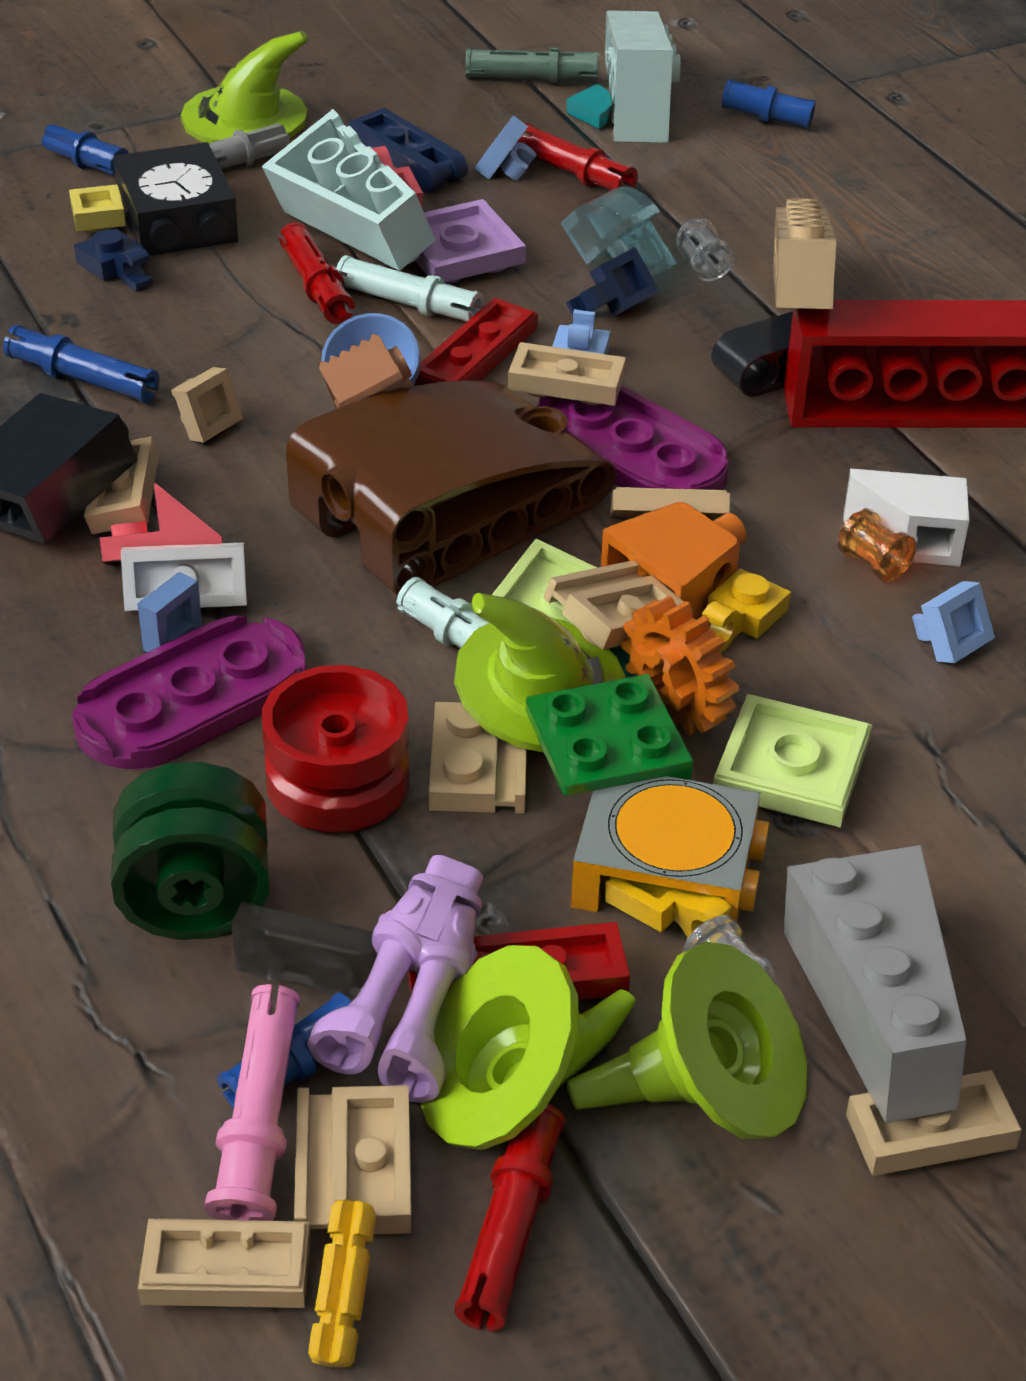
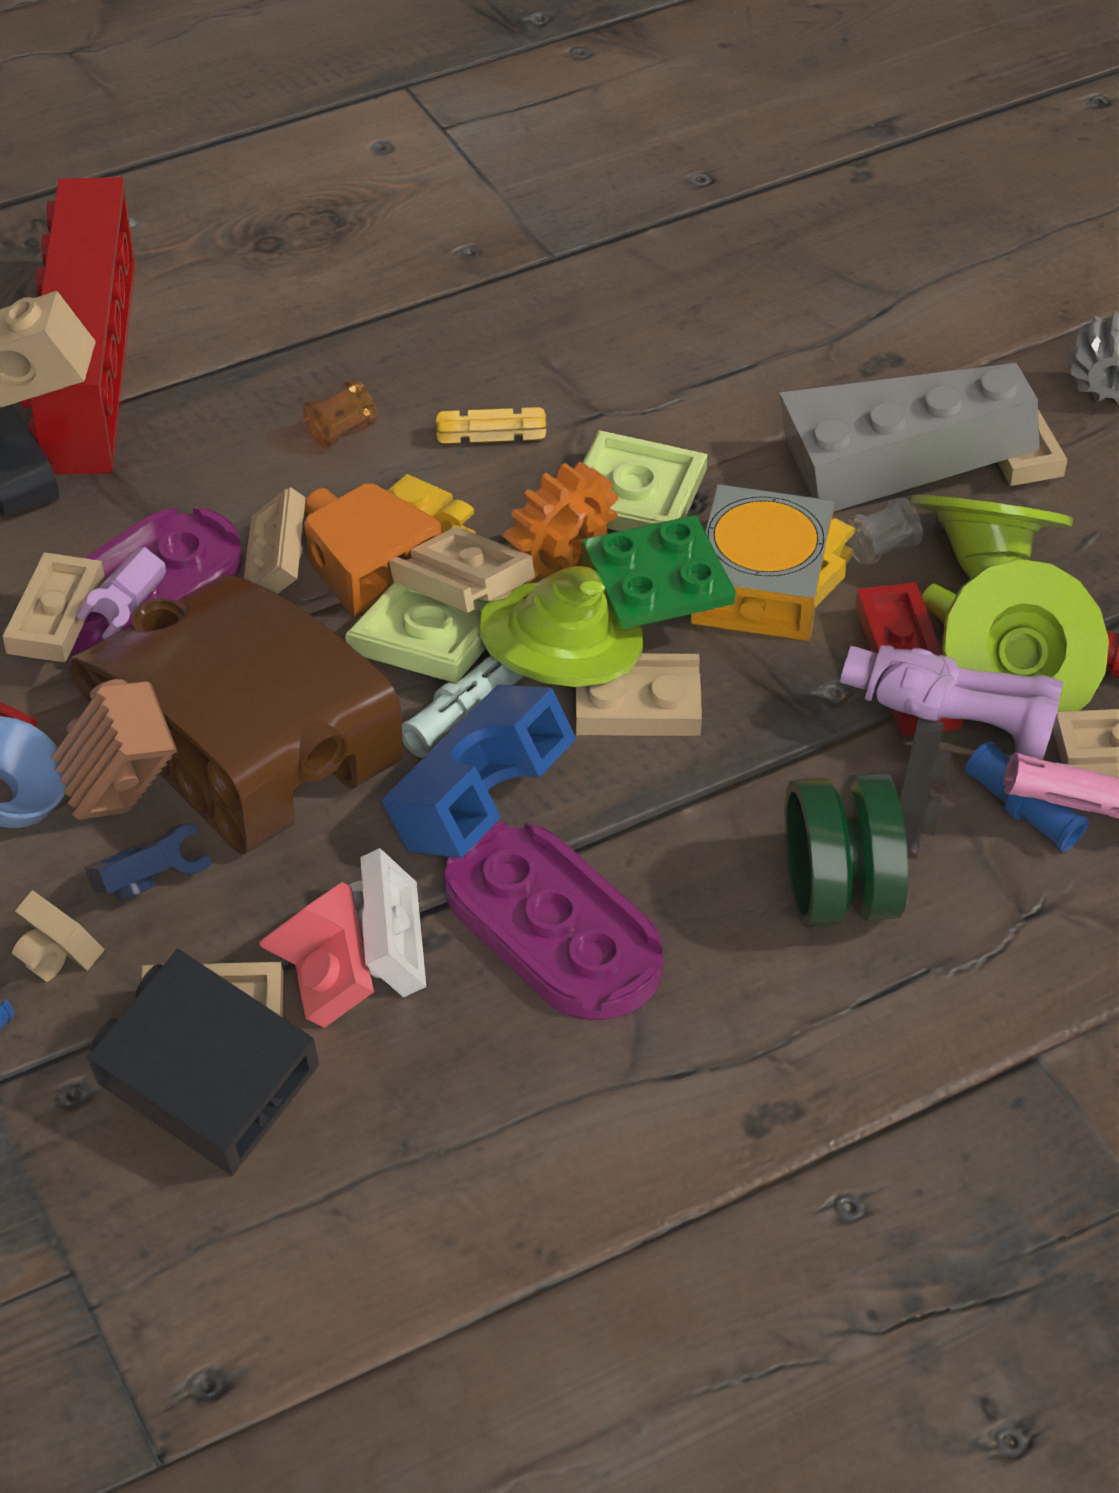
camera: 90 degrees left, 5 degrees up
(170, 611) = (457, 929): medium blue tile -> none
(267, 440) = (132, 869): none -> dark blue plate
(324, 602) = (446, 799): none -> blue arch
(336, 748) = (674, 767): red wheel -> none
(583, 404) = (124, 589): none -> lavender bar
(885, 658) = (491, 425): none -> yellow axle
(921, 505) = (293, 373): white slope -> none
(955, 622) = (454, 373): light blue tile -> none

